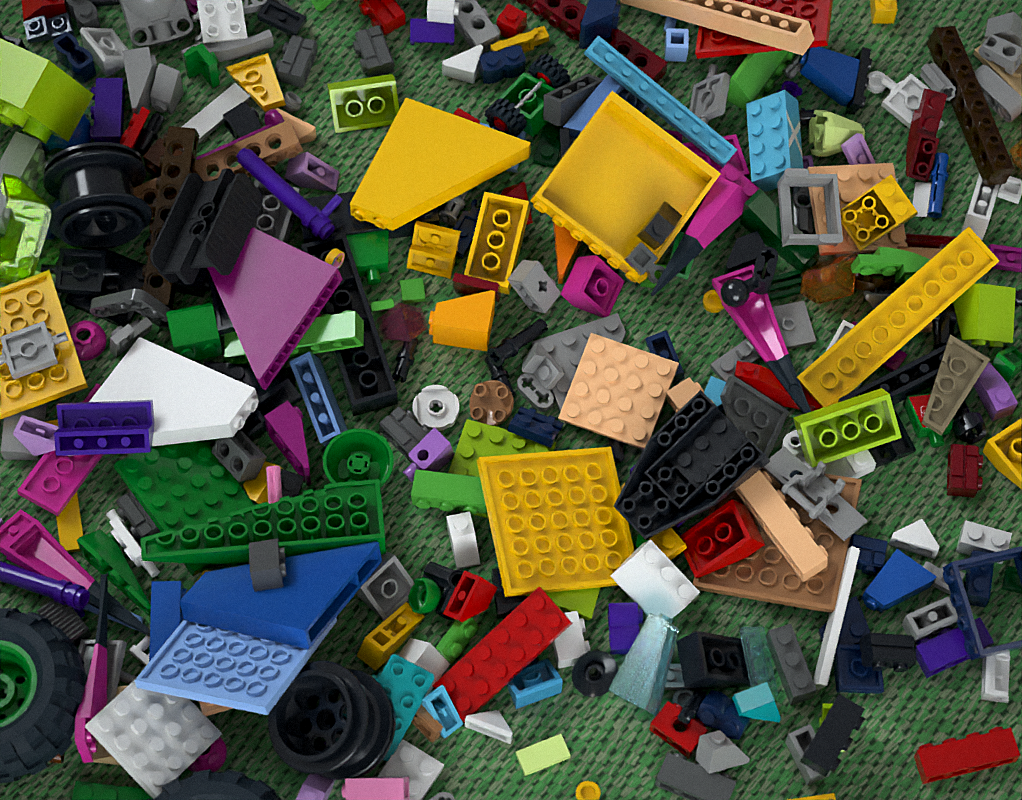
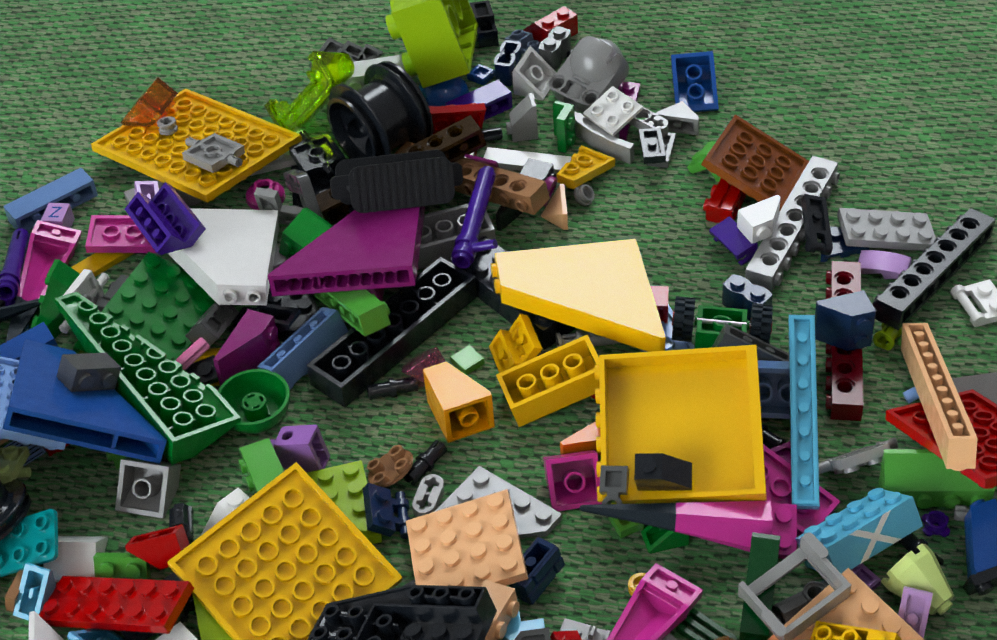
camera: 65 degrees right, 20 degrees down
(140, 74) = (508, 96): light grey slope -> none
(297, 61) = (625, 178): dark grey brick -> none
(311, 173) = (524, 234): lavender slope -> none
(335, 257) = (437, 278): yellow tile -> none
(363, 103) = (617, 223): lime slope -> none
(370, 254) = (477, 312): green torso -> none
(374, 52) = (679, 217): dark grey brick -> none
(381, 305) = (431, 342): bright green tile -> none
(389, 636) = (96, 516): yellow slope -> none
(402, 430) = (319, 413): dark grey brick -> none
(424, 595) = (150, 518): green hair -> none
(436, 395) = (357, 445): white plate -> none
(464, 65) = (718, 272): white slope -> none
(472, 285) = (496, 391): dark red tile -> none
(510, 345) = (455, 447): black pin -> none
(511, 21) = (795, 283): red brick -> none
(525, 40) = (786, 302): yellow hinge -> none
(534, 286) = (525, 443): light grey brick -> none
(542, 366) = (455, 478): light grey slope -> none
(676, 45) = (887, 398): light blue brick -> none
(736, 291) = (685, 595): black beam -> none
(744, 252) = (716, 579): black slope -> none

